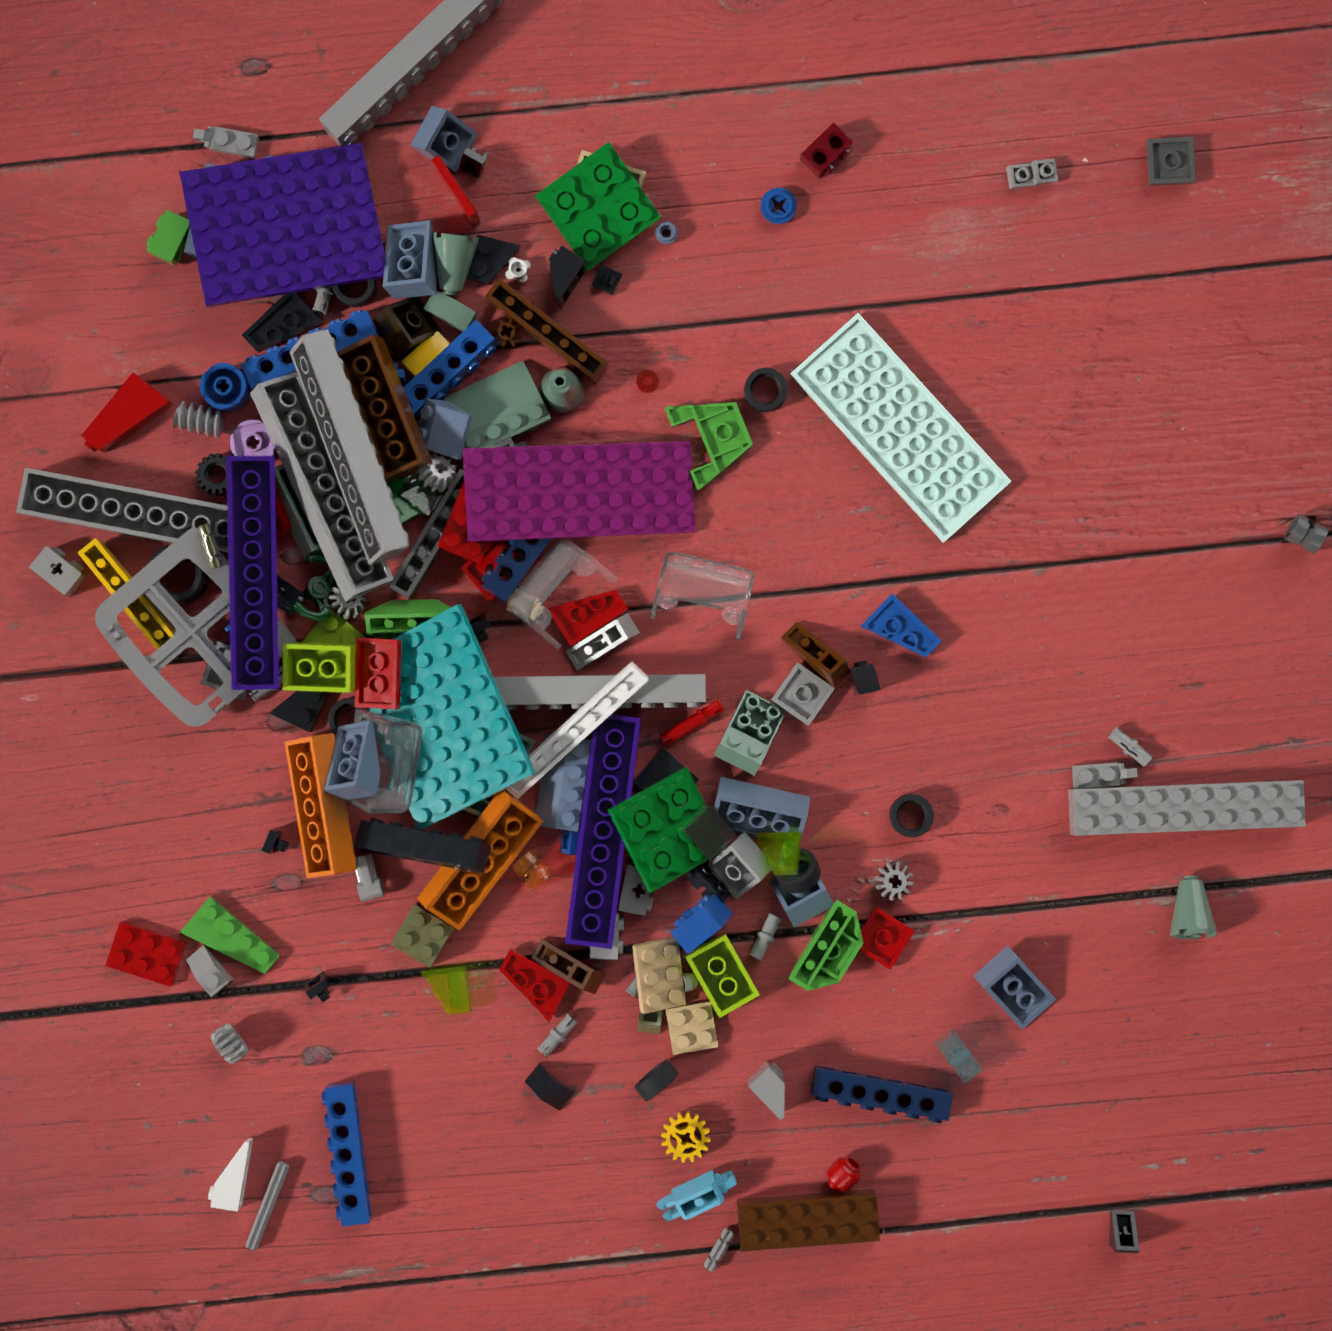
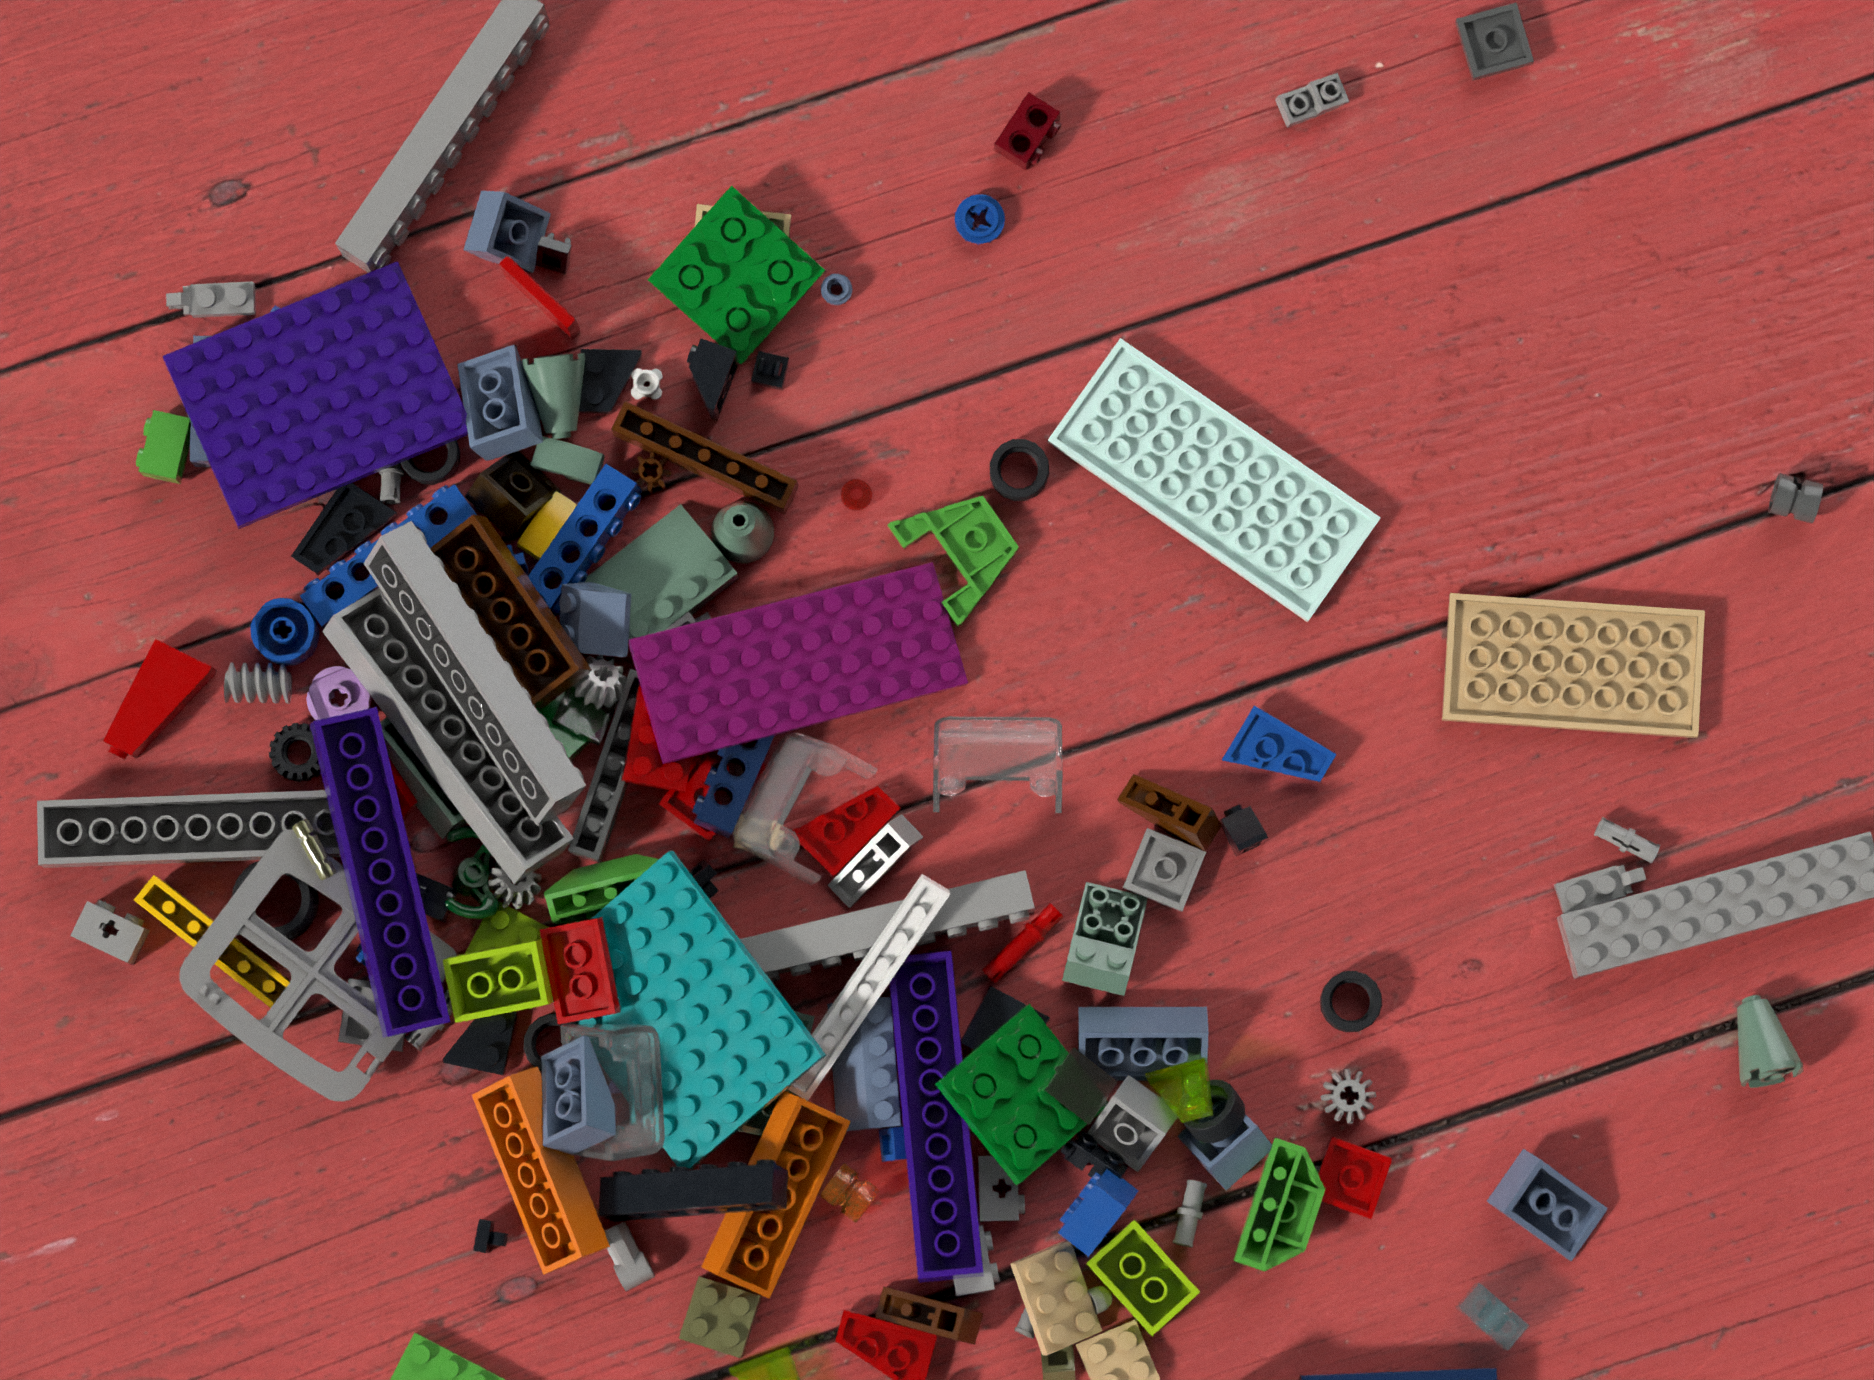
camera: 10 degrees left, 5 degrees down
(1122, 615) = (1573, 665): none -> tan plate

